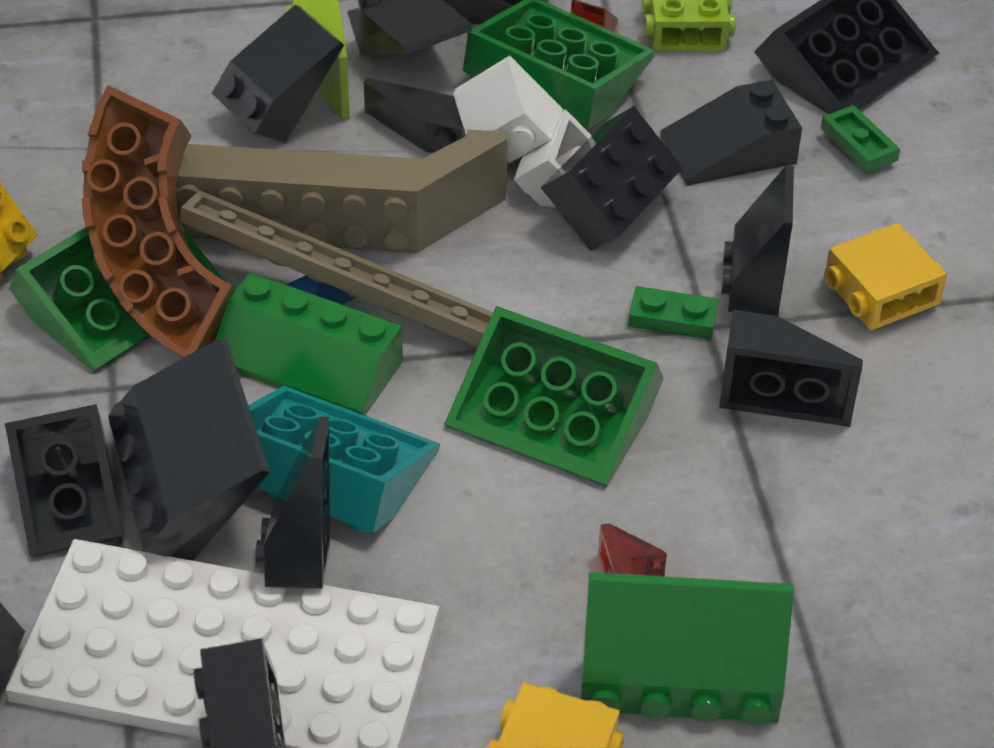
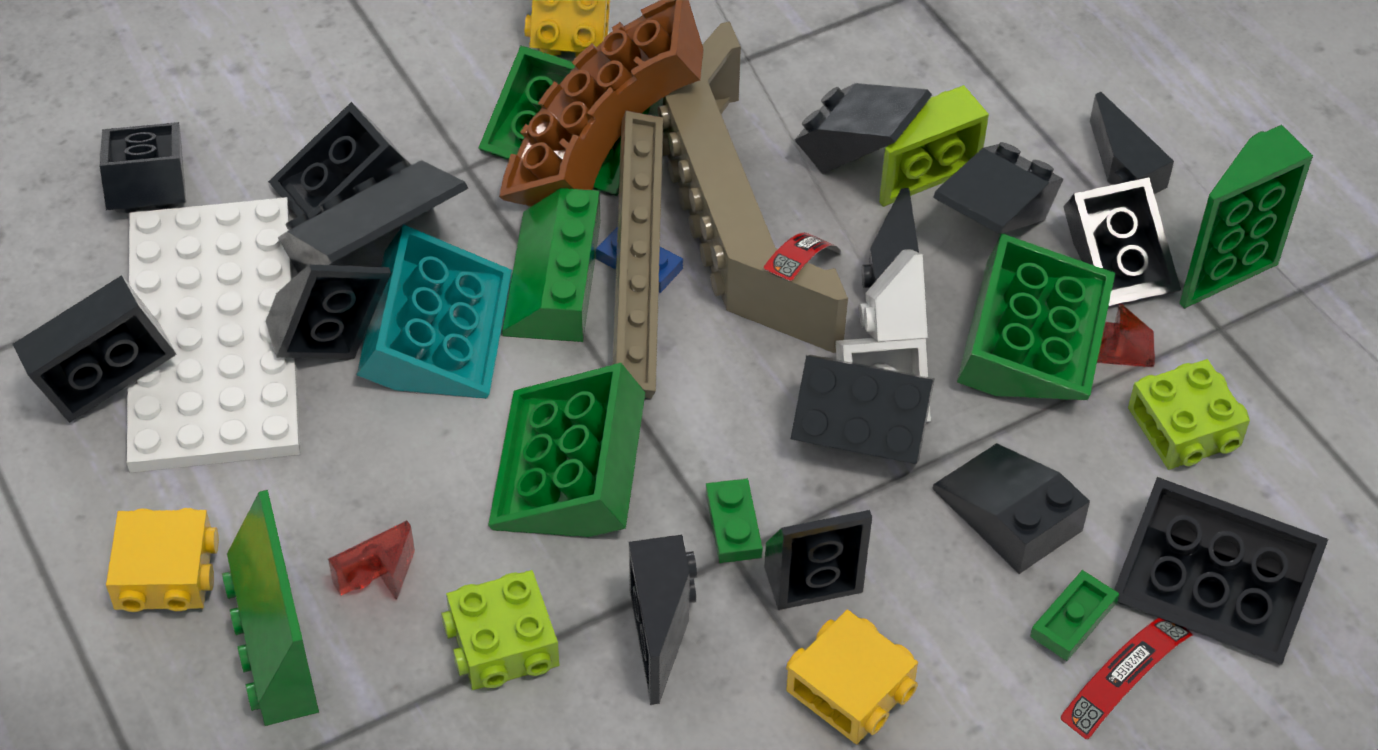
camera: 70 degrees right, 5 degrees up
(438, 150) = (795, 254): none -> sticker
(745, 497) = (500, 630): none -> lime brick
(931, 135) = (1121, 675): none -> sticker

